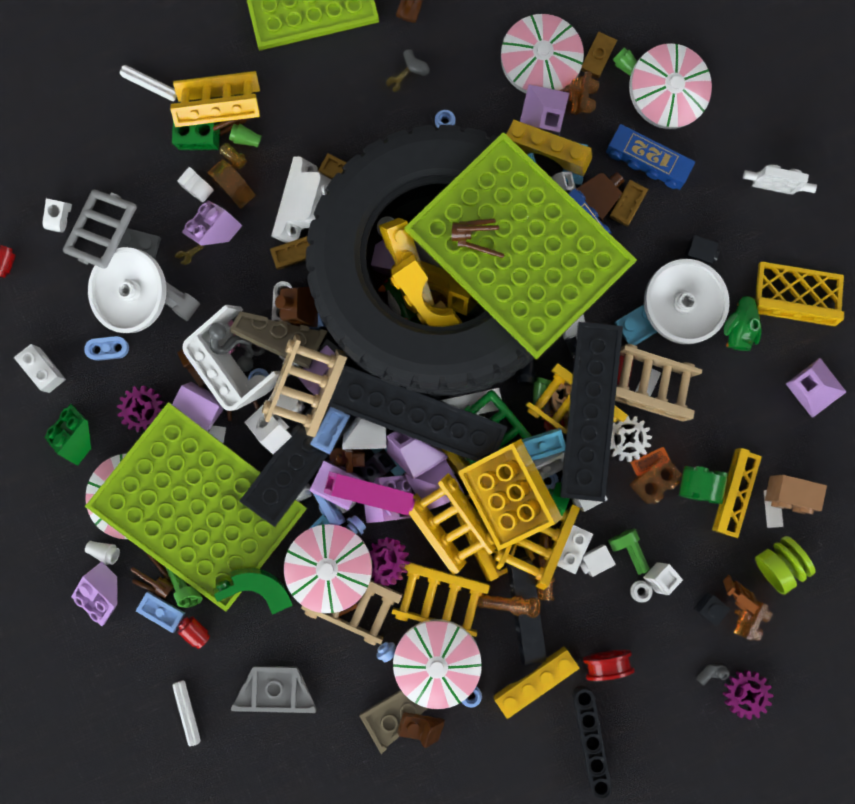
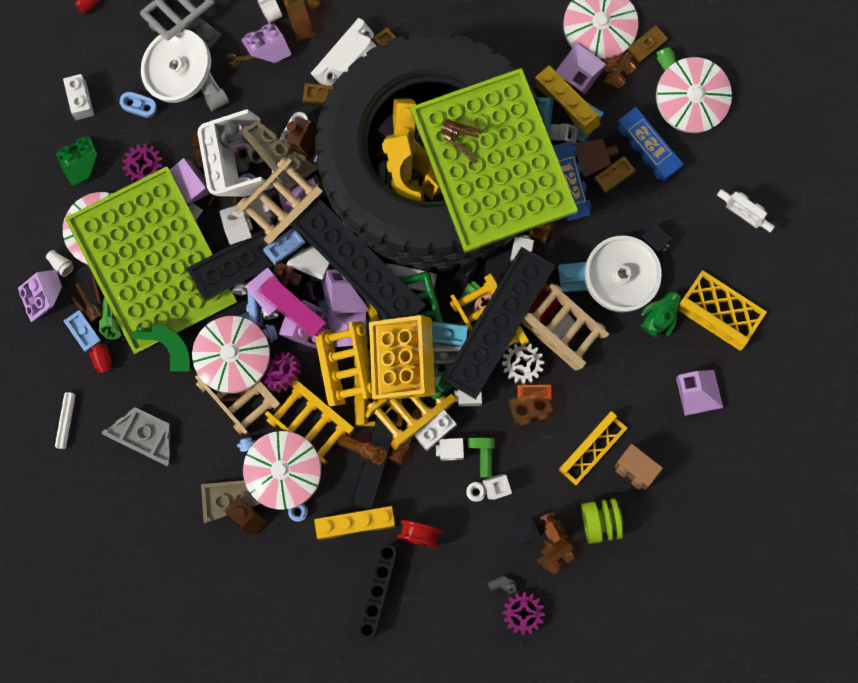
camera: 30 degrees right, 5 degrees down
(444, 114) = (496, 37): light blue plate -> none
(703, 484) = (565, 427): green brick -> none
(773, 515) = (615, 482): white sticker -> none

